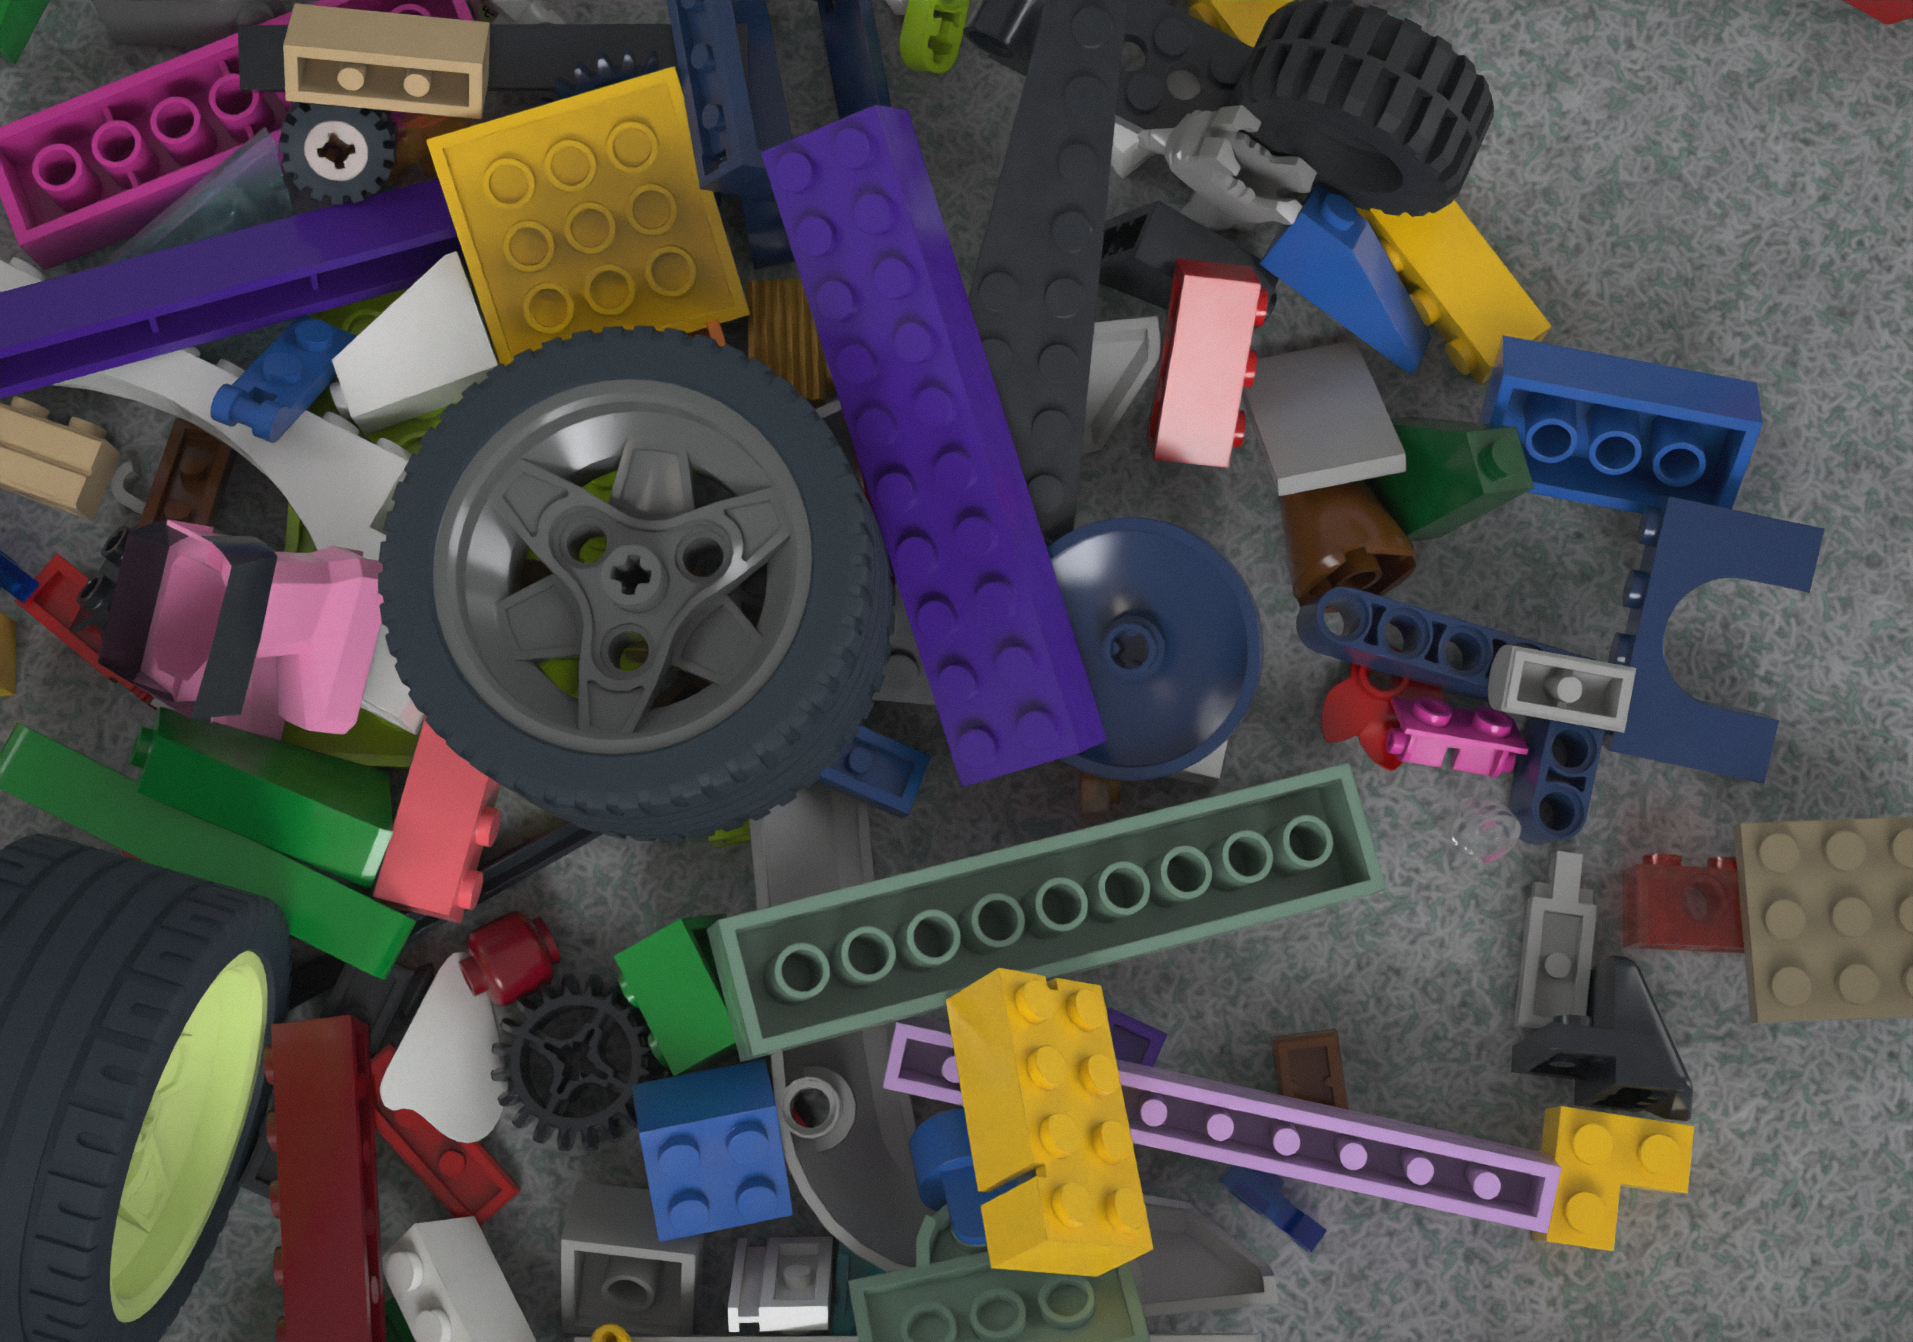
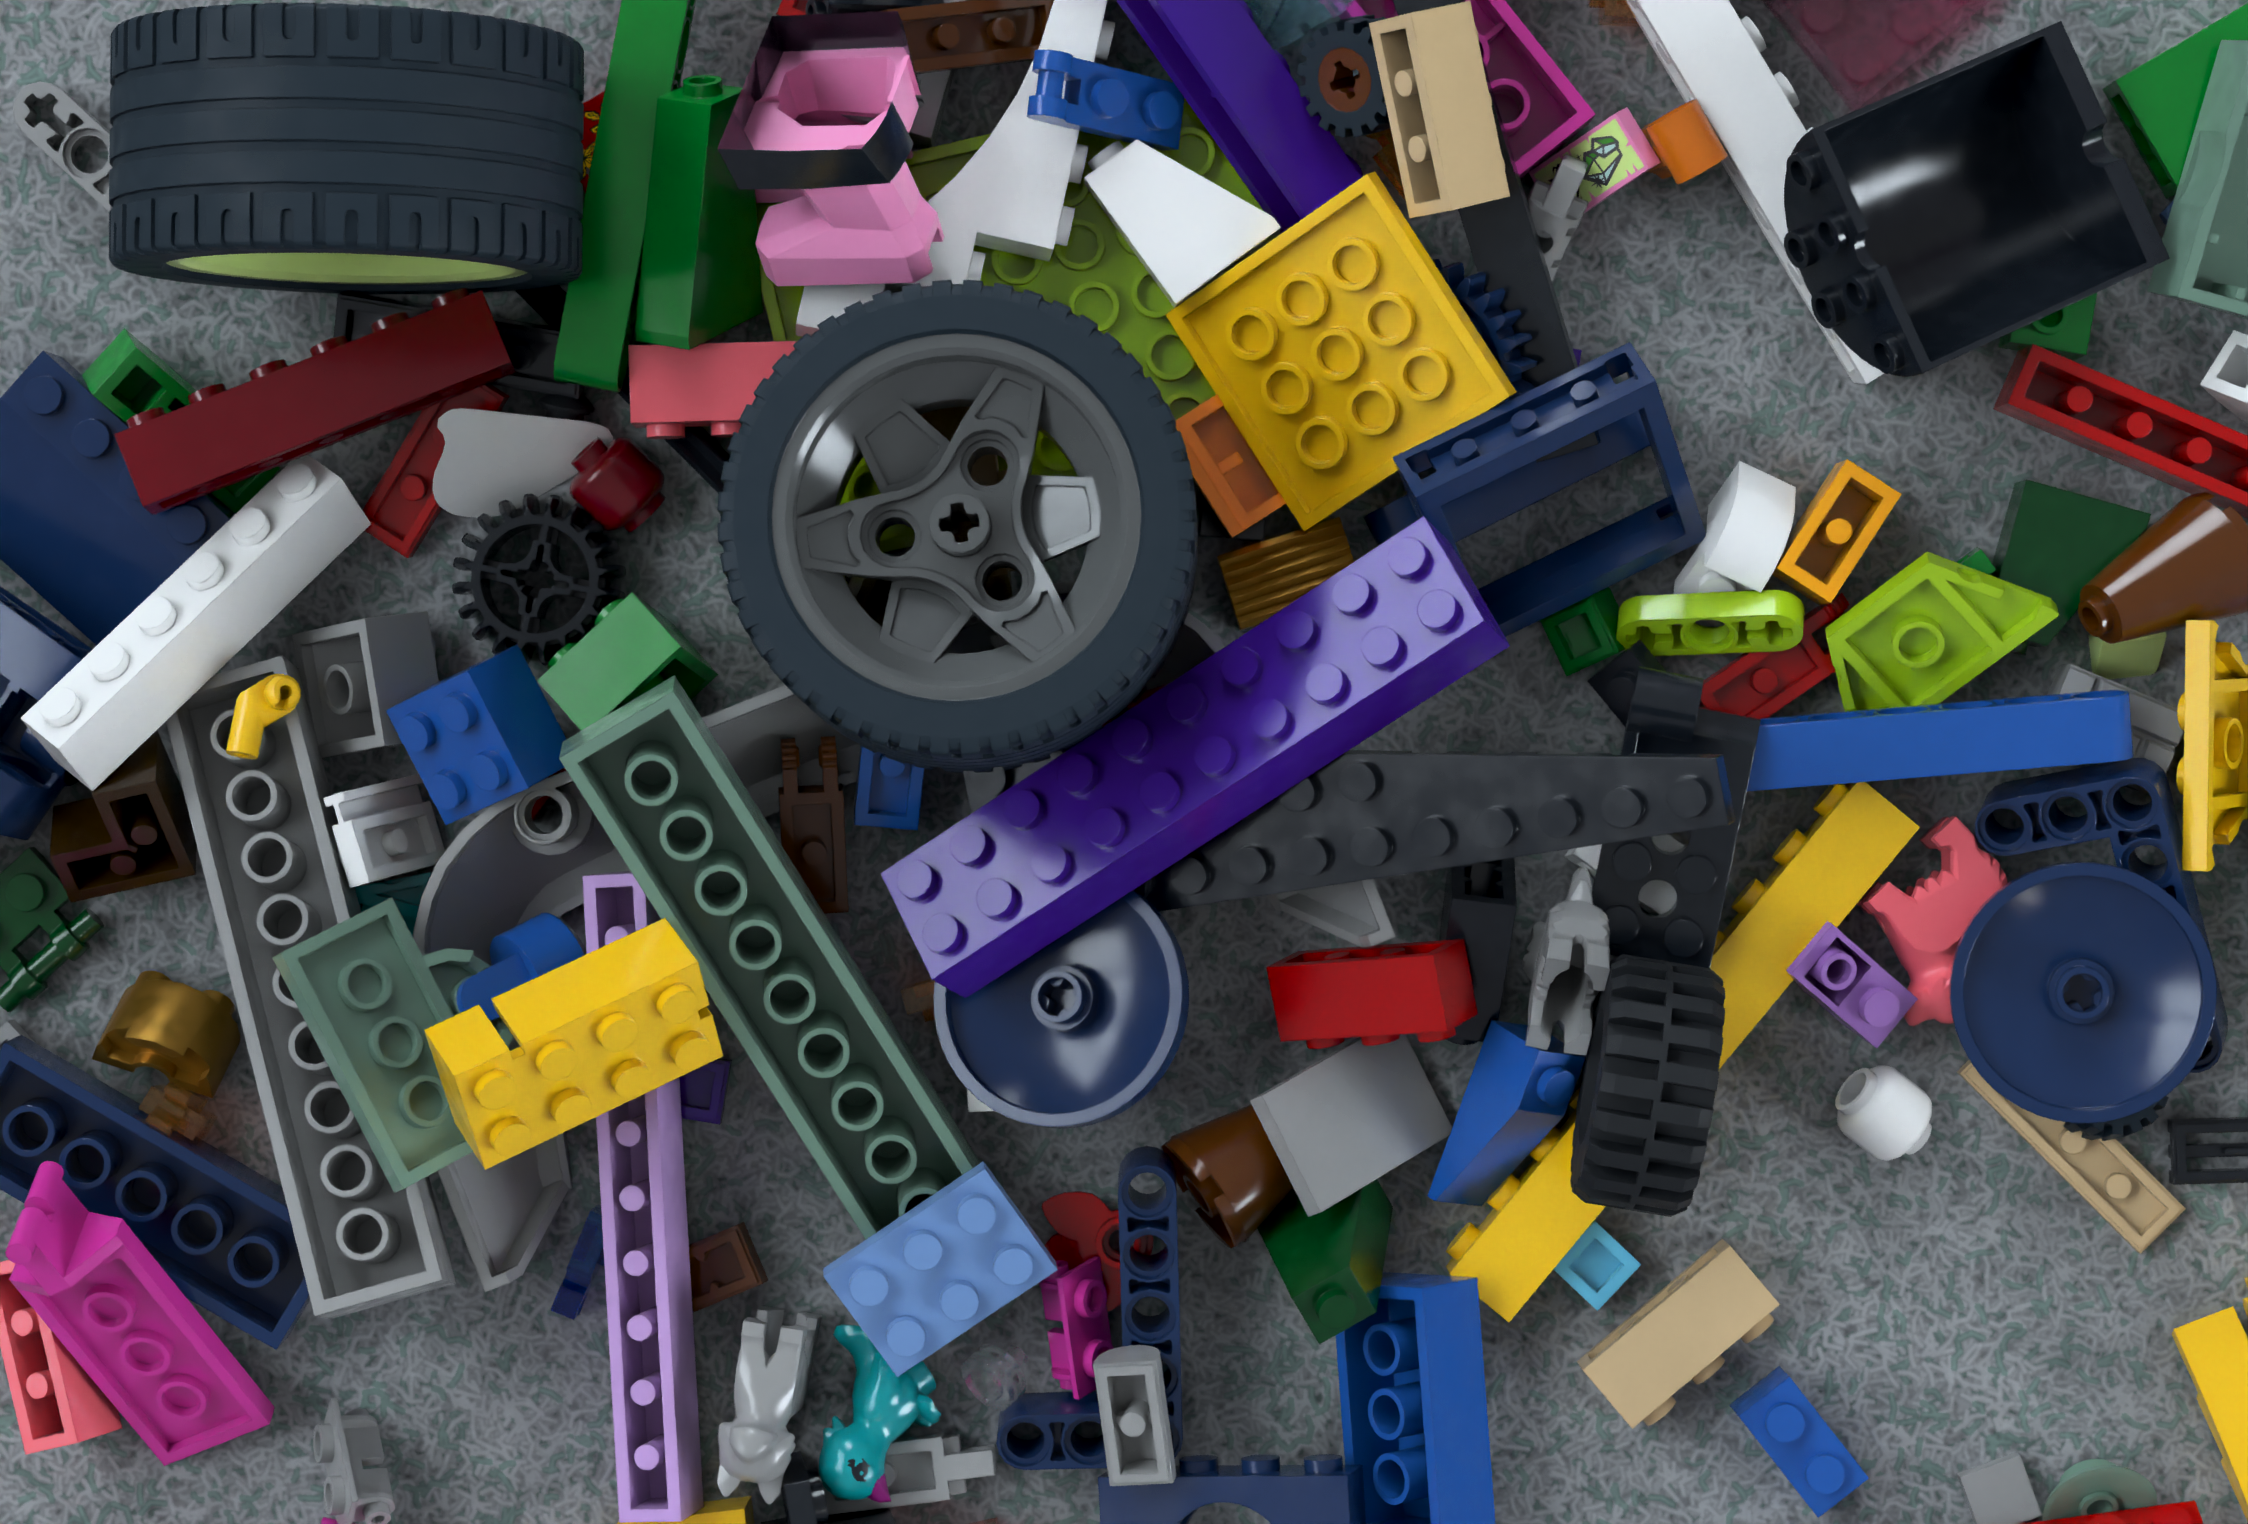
camera: 70 degrees right, 10 degrees up
(885, 847) = (815, 825): none -> reddish brown hinge
(927, 100) = (1584, 631): none -> green slope
(975, 76) = (1617, 678): none -> black plate
(1368, 841) = (940, 1269): none -> medium blue plate
(1485, 941) = (882, 1411): none -> teal animal
(1497, 1066) = (768, 1391): none -> light grey animal
(1519, 240) = (1596, 1265): none -> medium azure plate
(1598, 184) = (1679, 1335): none -> tan brick
(1725, 102) = (1799, 1441): none -> blue brick

